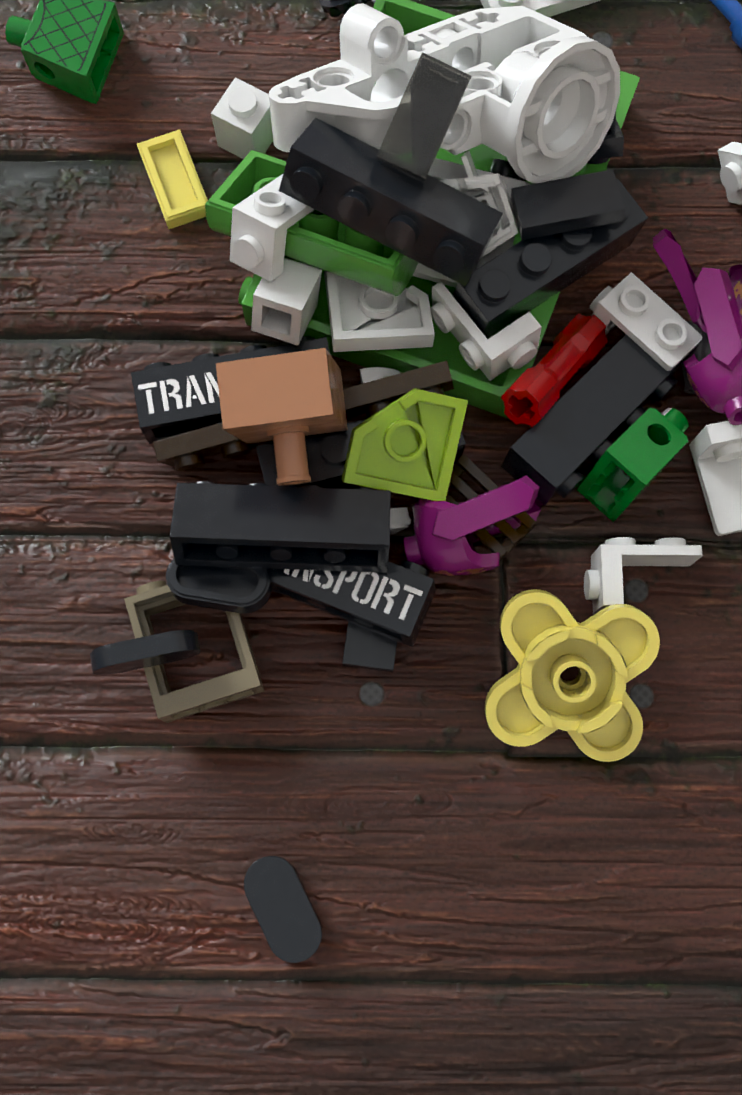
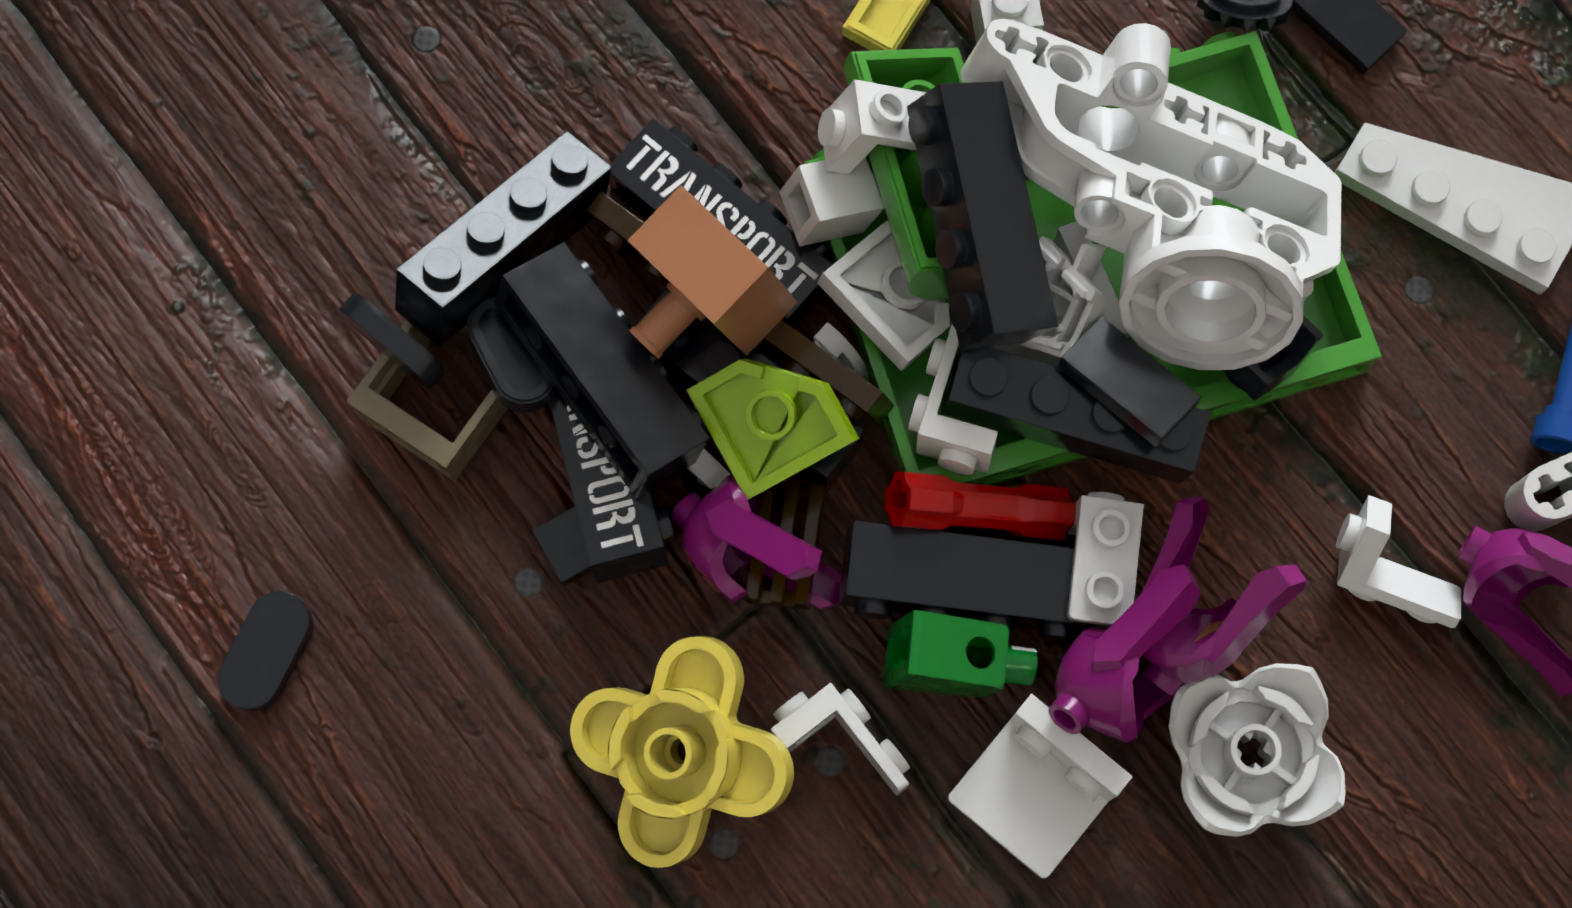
camera: 55 degrees right, 0 degrees up
(132, 530) = (506, 229): none -> brick
(423, 117) = (1073, 177): clear smoke tile -> none

